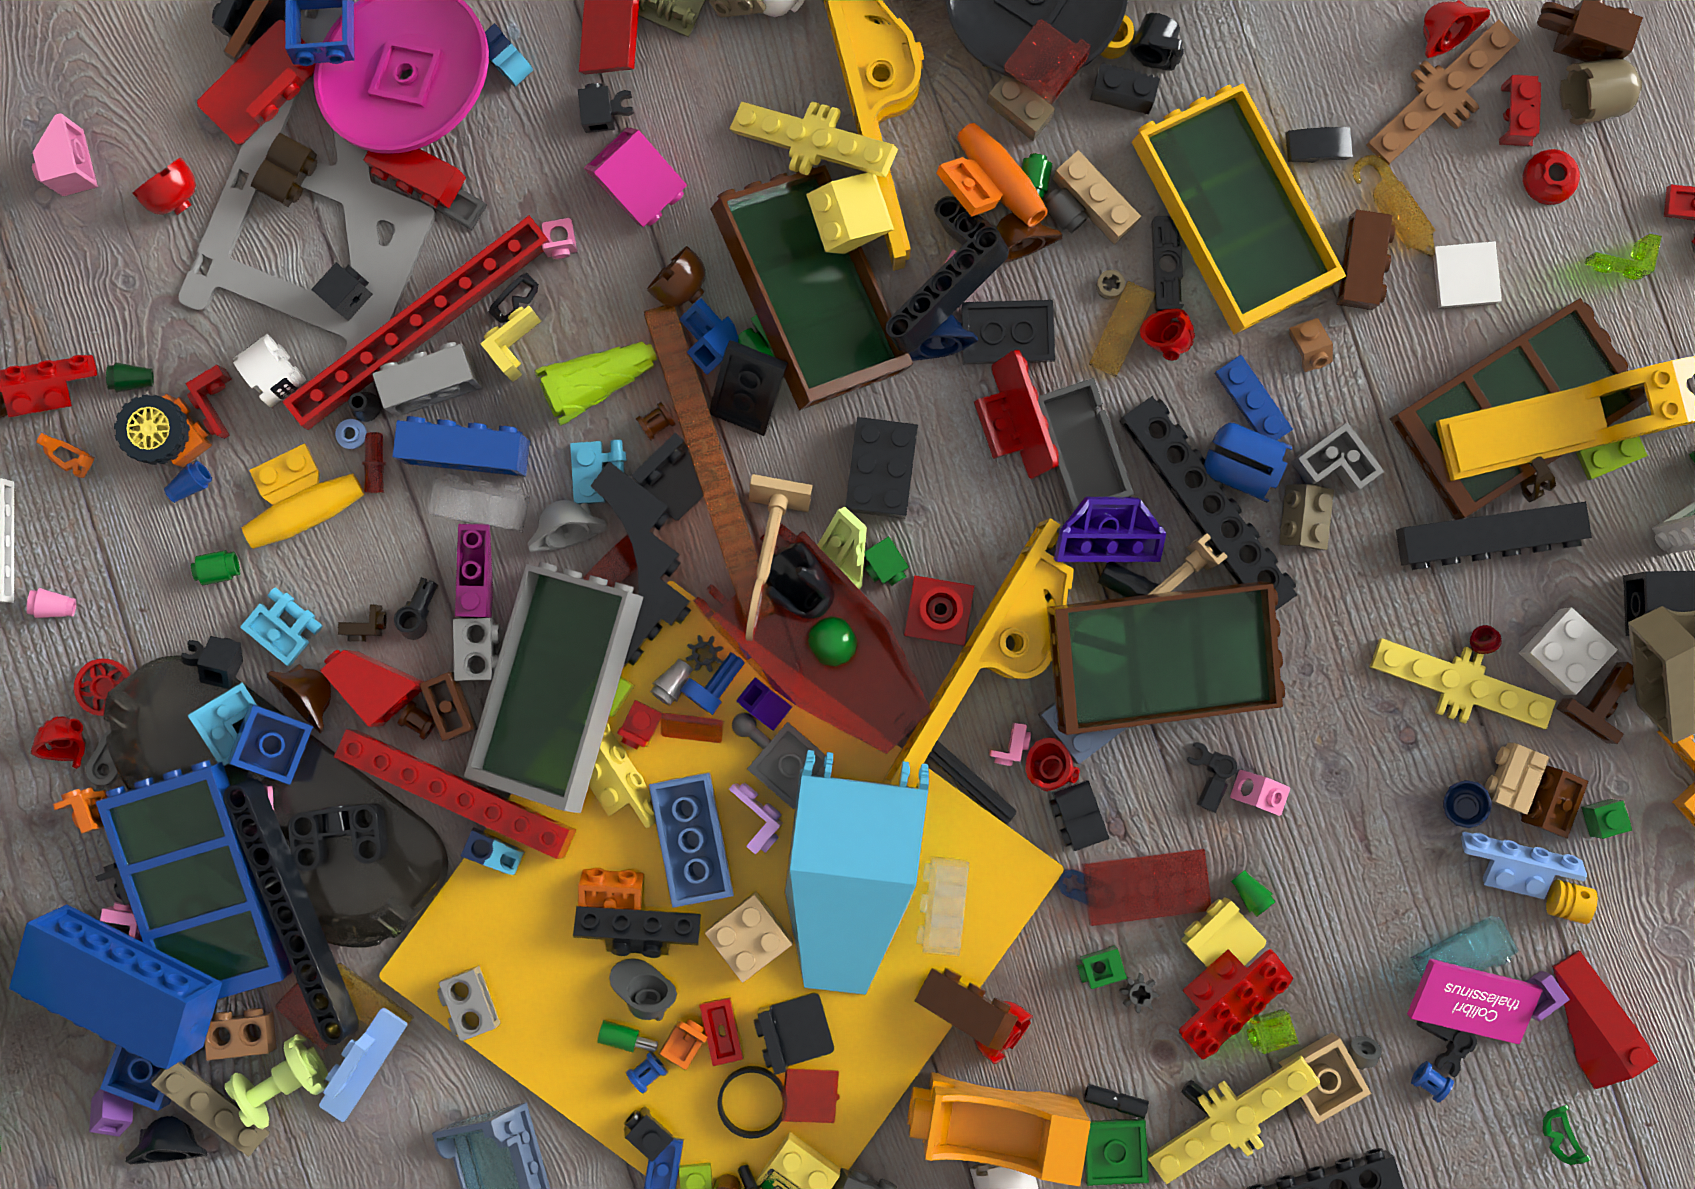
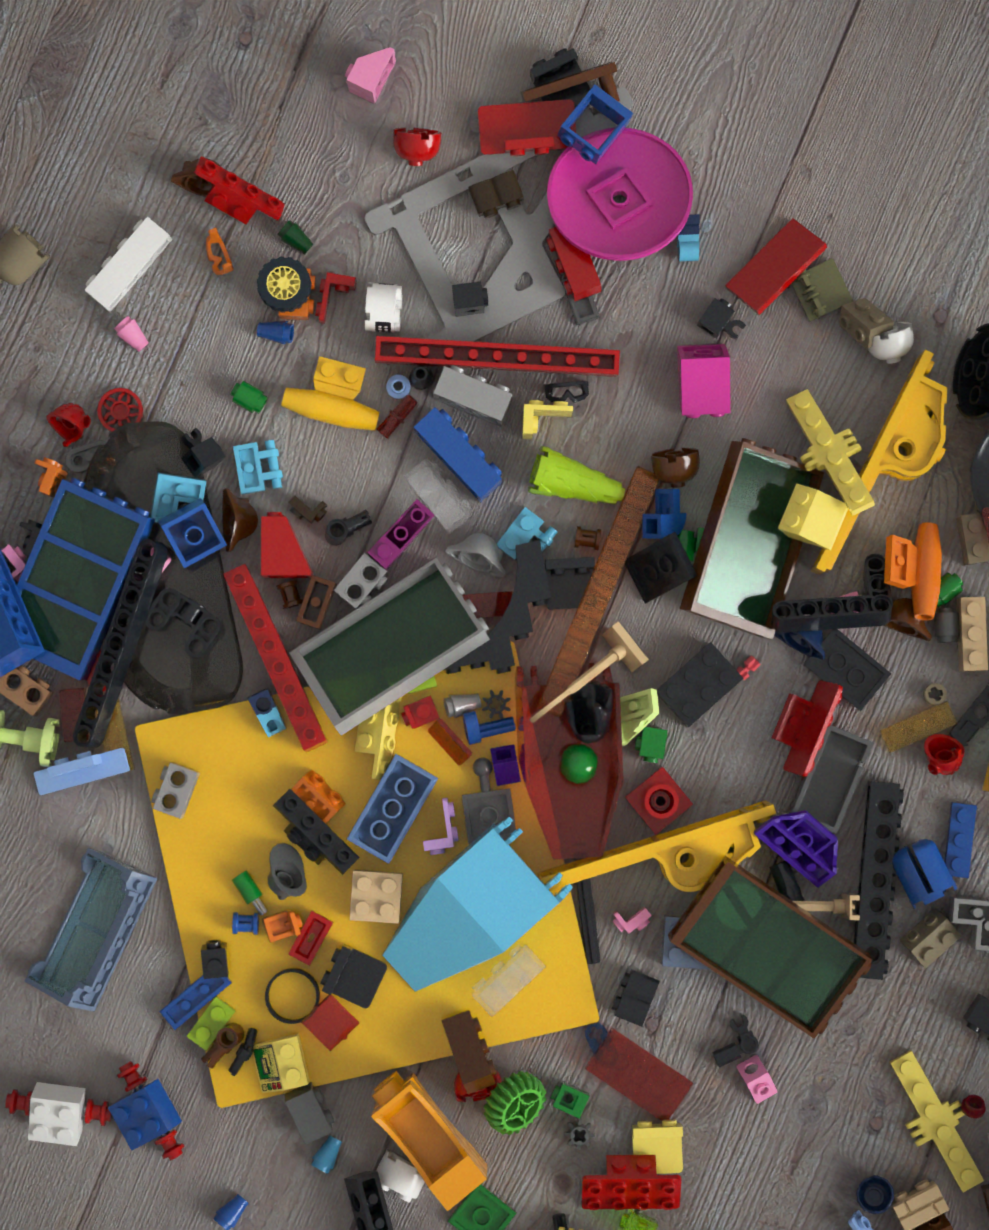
camera: 40 degrees right, 0 degrees up
(562, 248) = (622, 385): bright pink bracket -> none
(913, 406) = (751, 664): none -> coral piece
(1052, 765) = (644, 951): red helmet -> none
(1052, 1018) = (514, 1103): none -> bright green gear
(1112, 1100) = (507, 1184): black piece -> none
(1252, 893) = (699, 1135): green cone -> none

